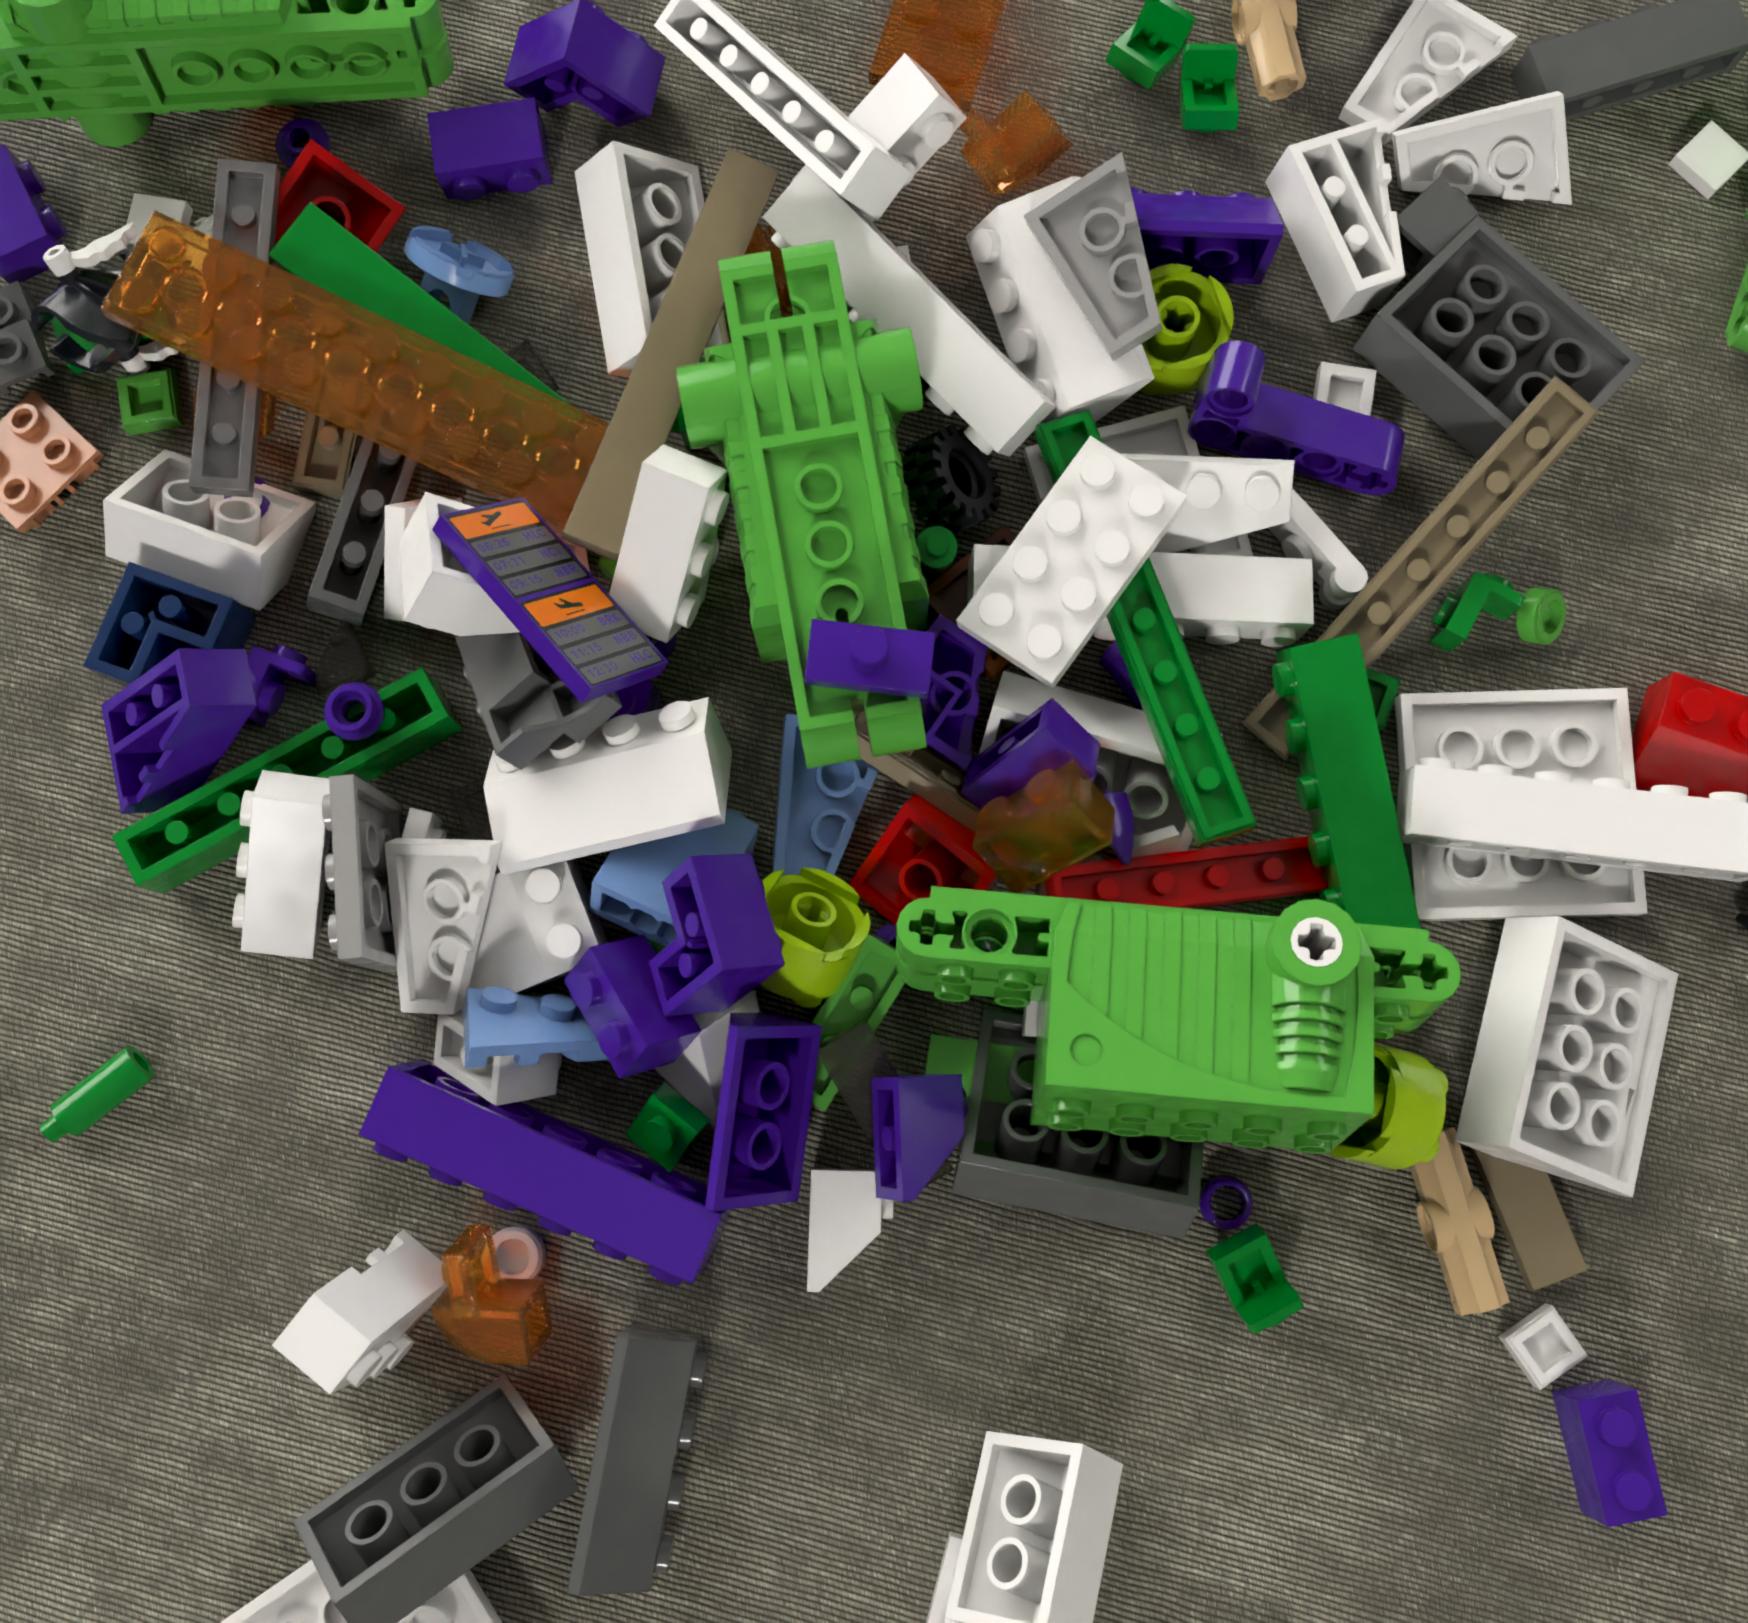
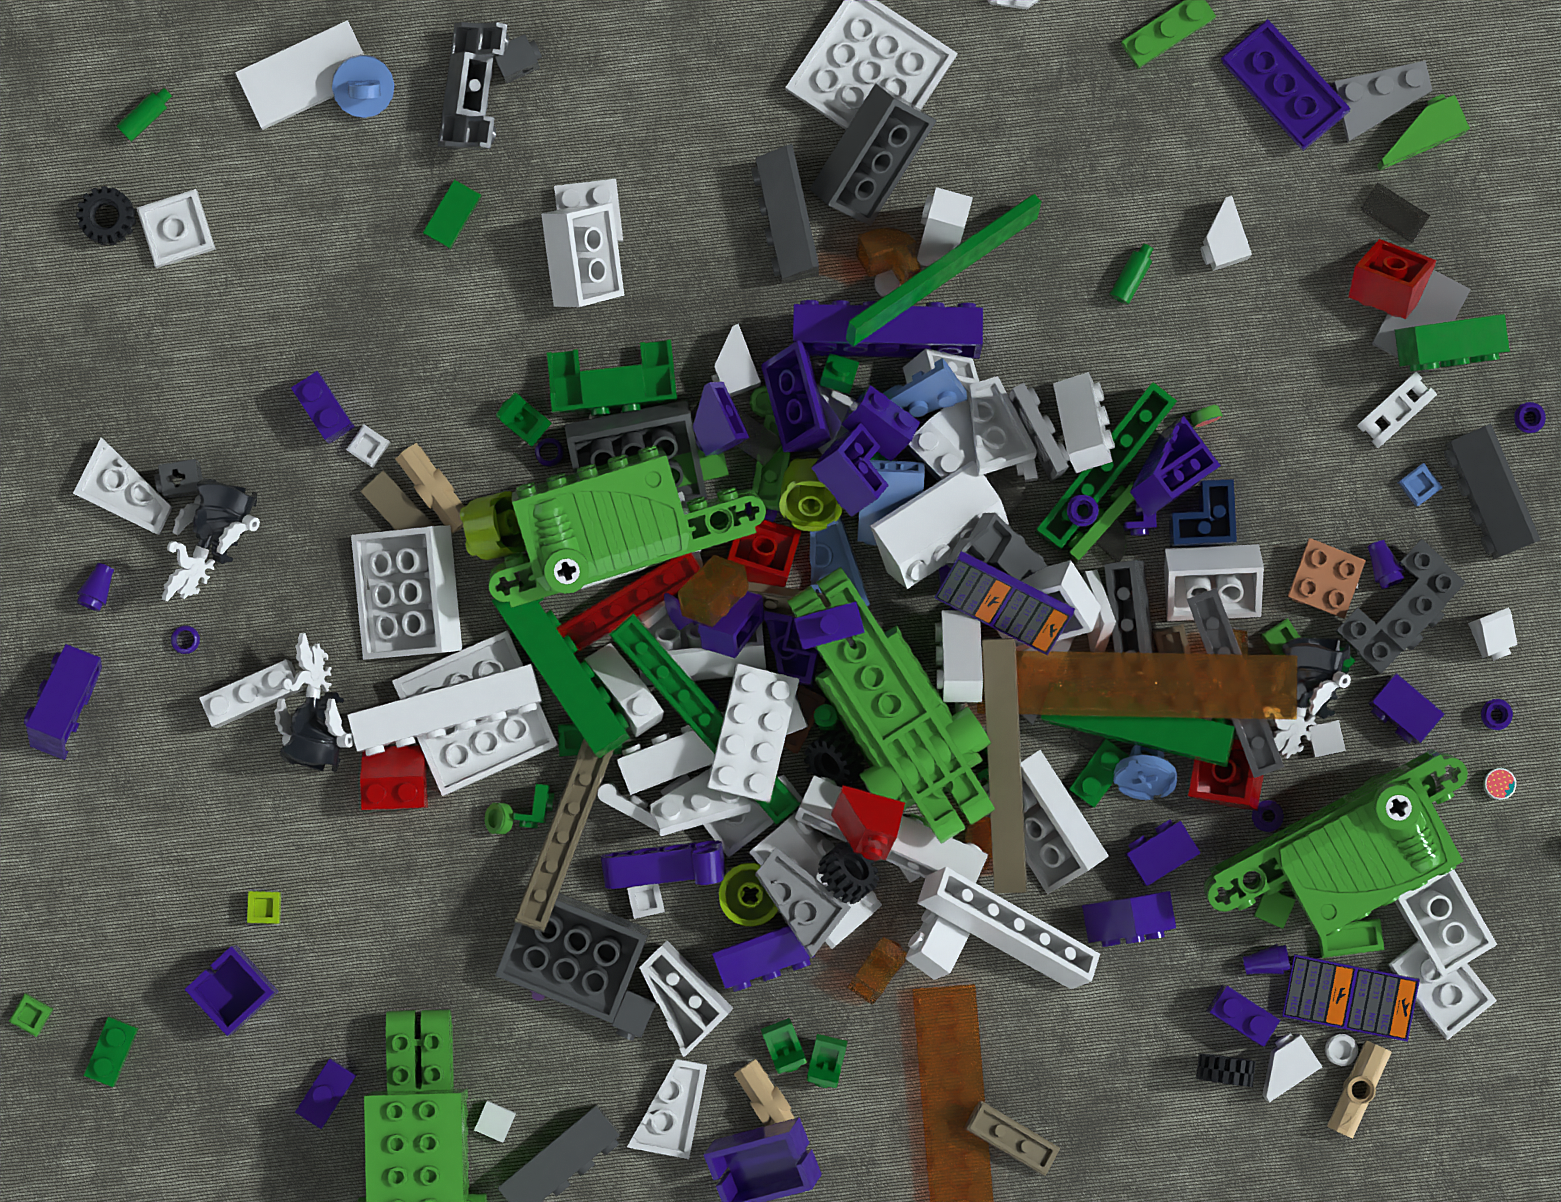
camera: 155 degrees right, 5 degrees up
(89, 802) = (1206, 416): none -> bright green tile
(307, 707) = (1082, 543): none -> bright green plate
(405, 1232) = (943, 270): none -> green tile
(535, 309) = (1098, 774): none -> green plate
(824, 1137) = (760, 402): none -> bright green tile
(938, 303) = (868, 821): none -> red slope
(1026, 278) = (848, 873): none -> black tyre
(1075, 1269) = (614, 387): none -> green bracket
(1255, 735) = (625, 689): none -> white slope
(1494, 151) = (615, 1072): white wing -> none

